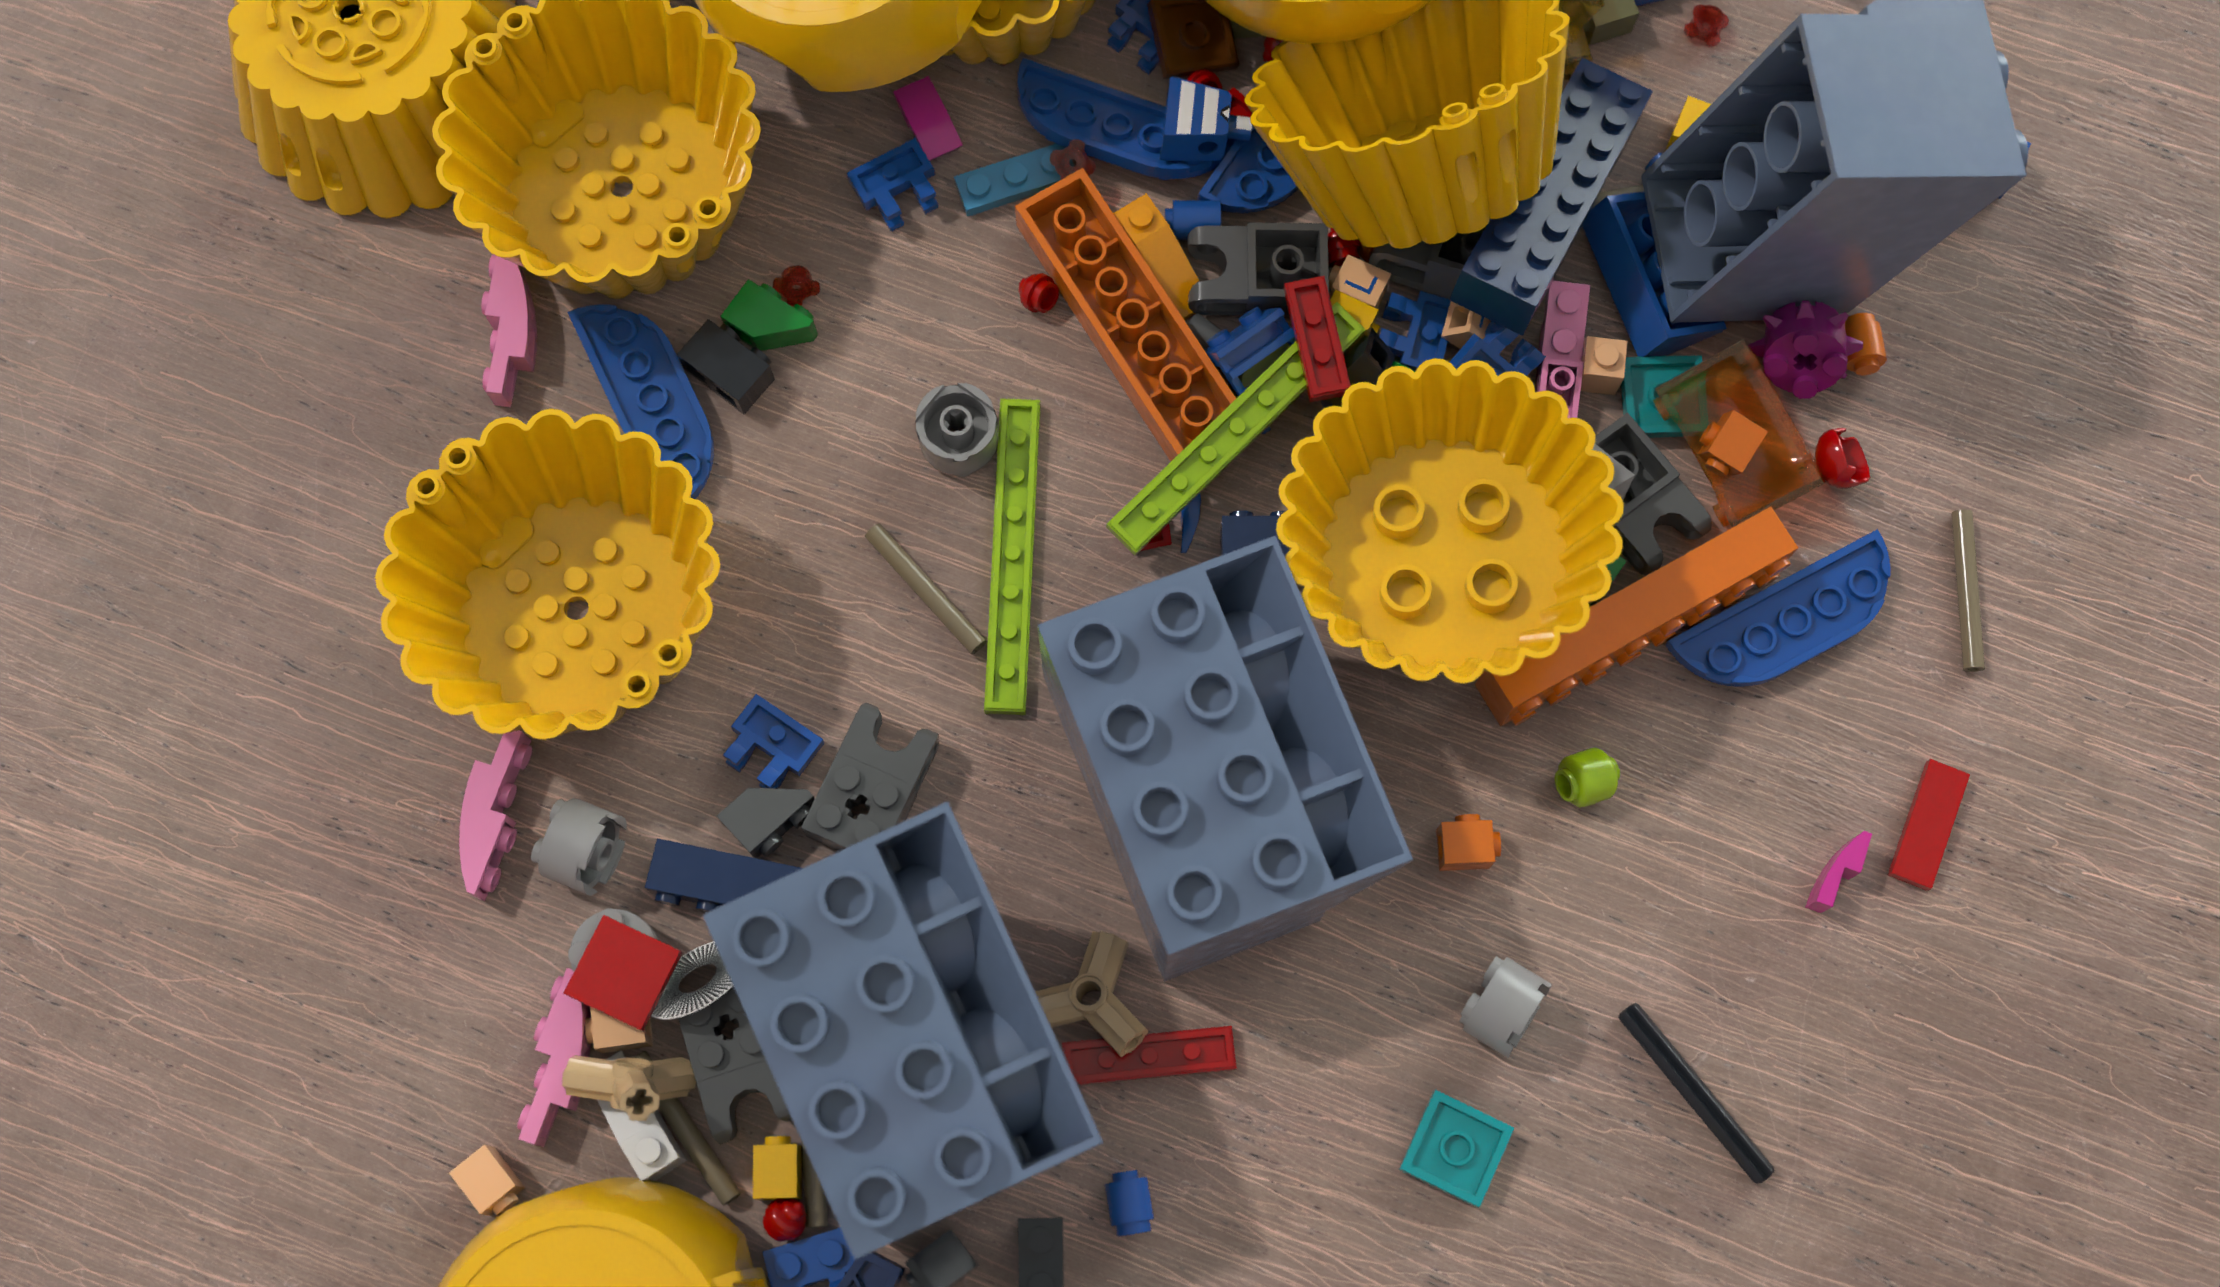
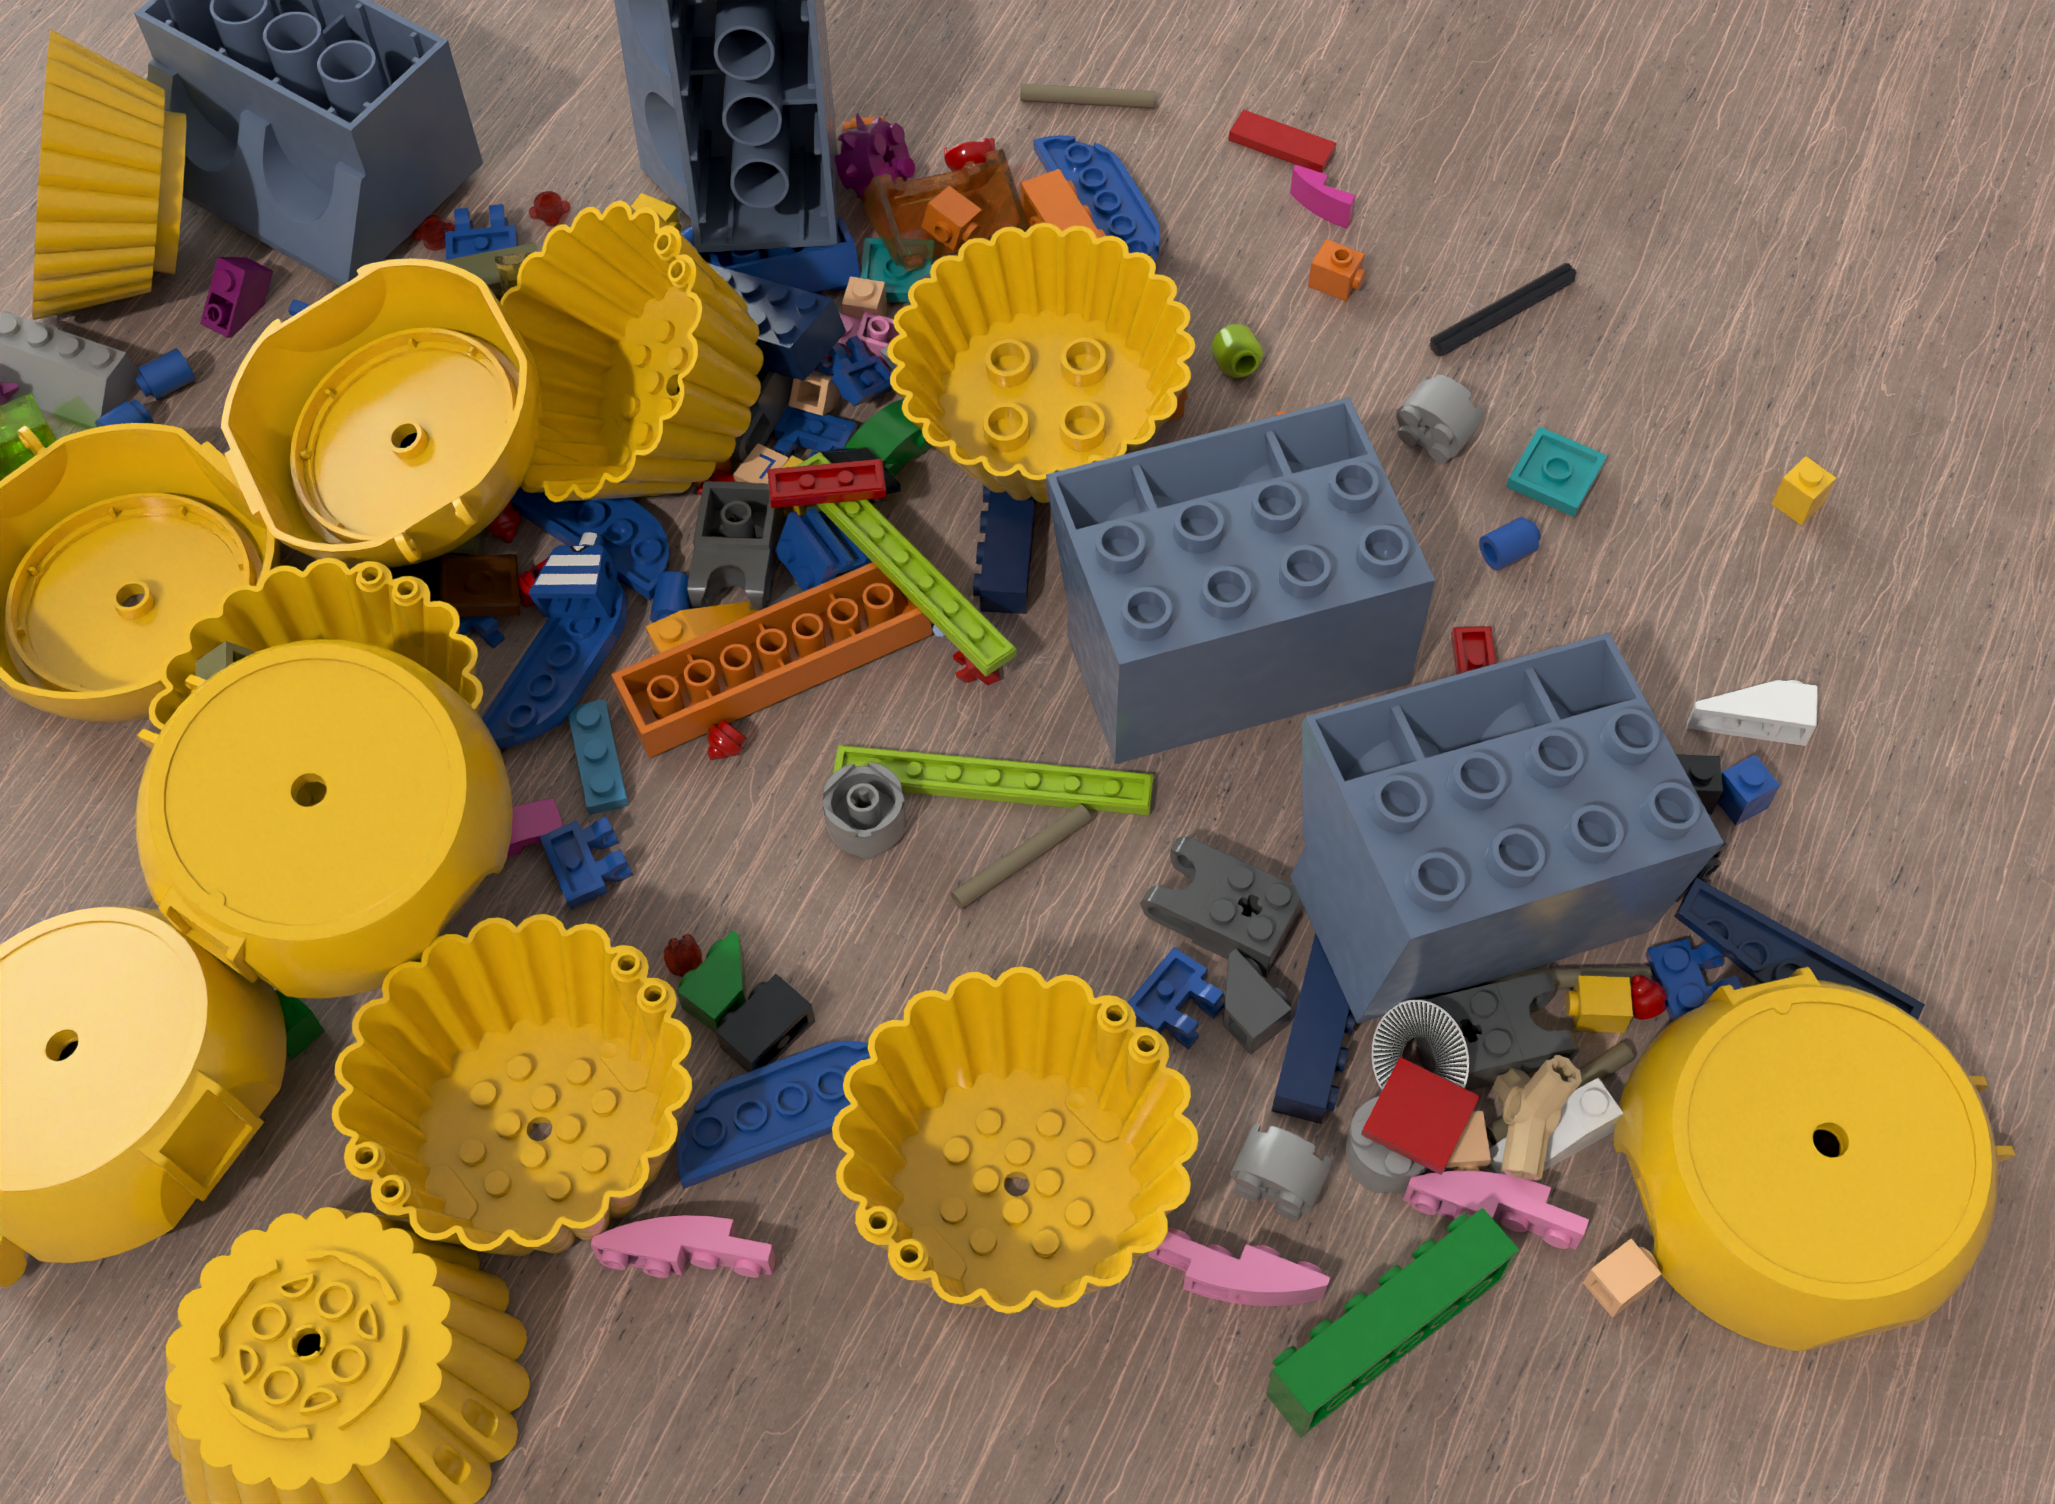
camera: 85 degrees left, 15 degrees down
(431, 952) = (1390, 1321): none -> green brick
(1076, 151) = (604, 685): clear red plate -> none
(1347, 1091) = (1509, 543): none -> blue brick
(1724, 891) = (1337, 270): none -> orange brick

